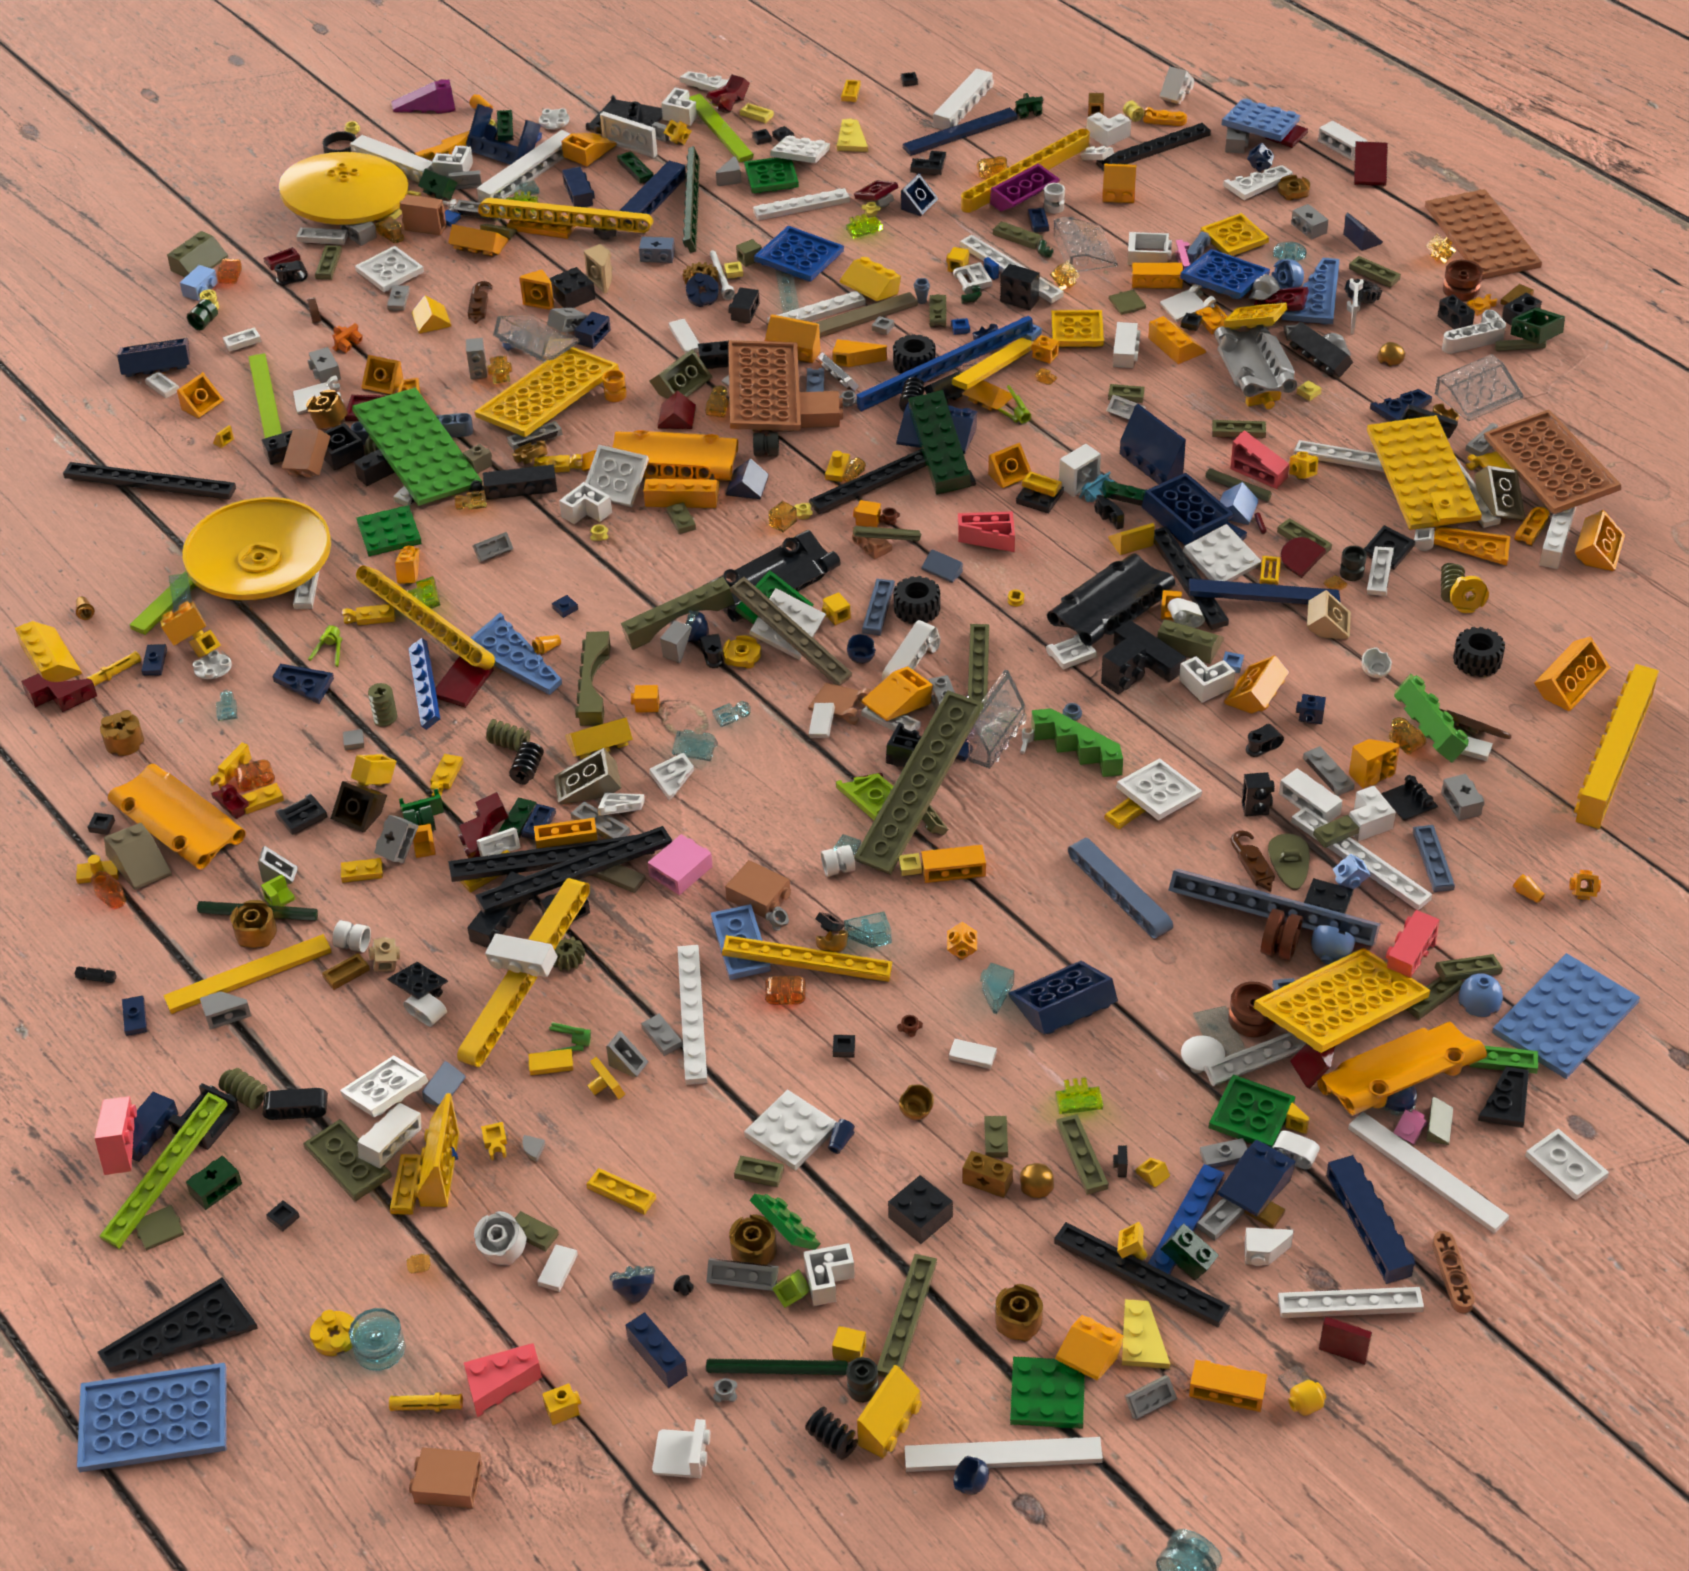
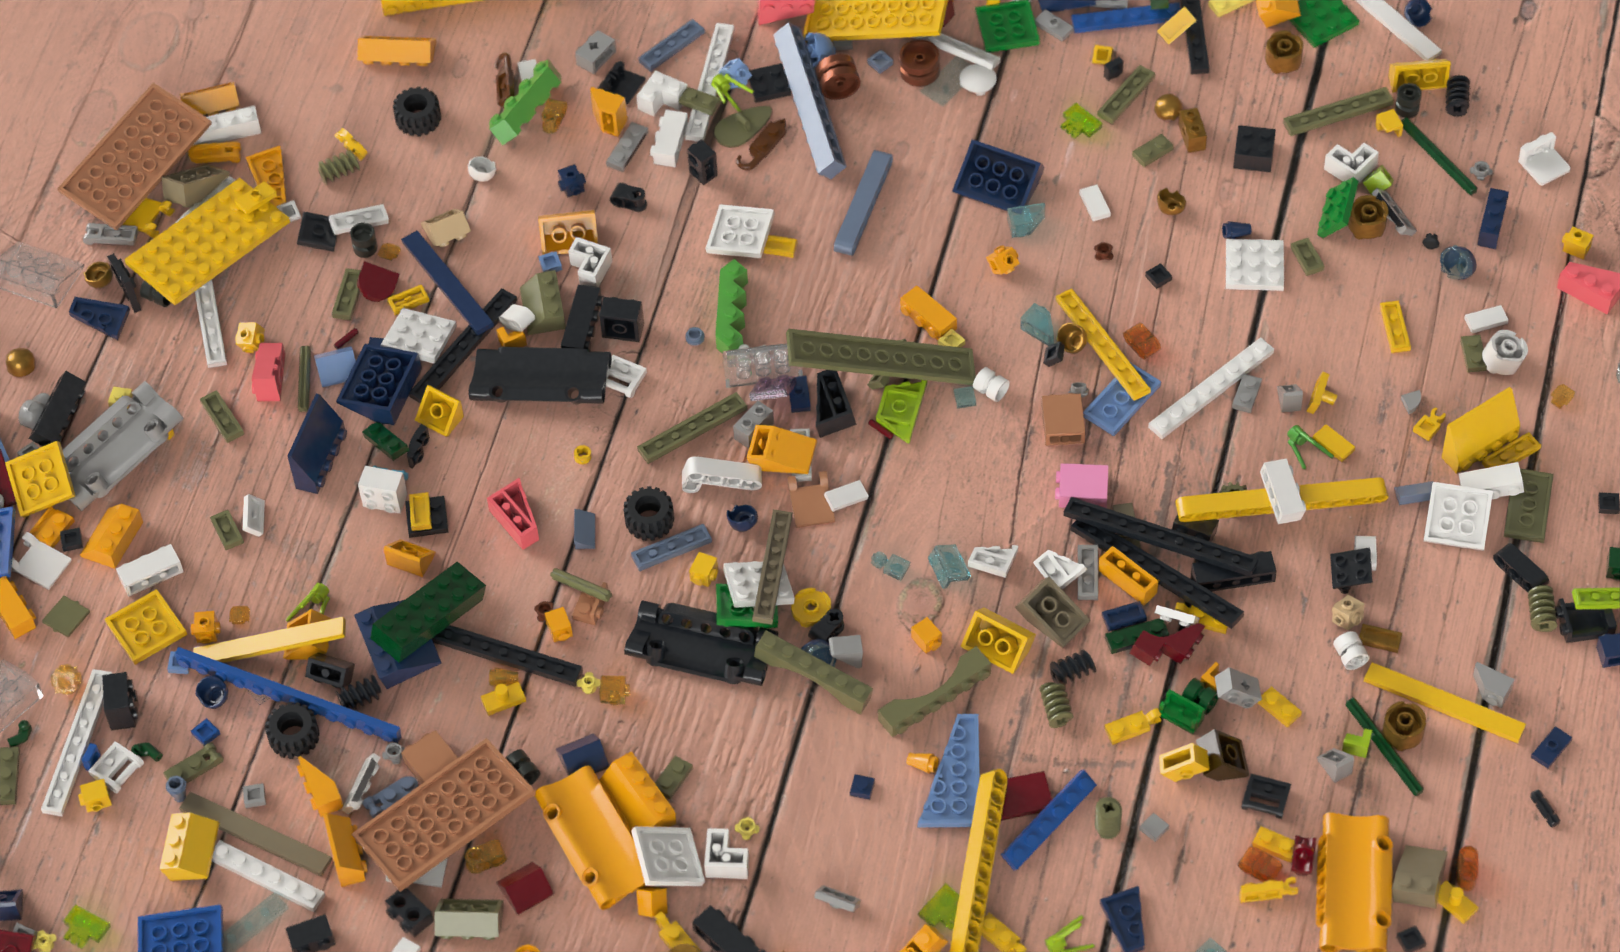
camera: 125 degrees left, 10 degrees up
(1340, 852) = (722, 85): none -> lime plant

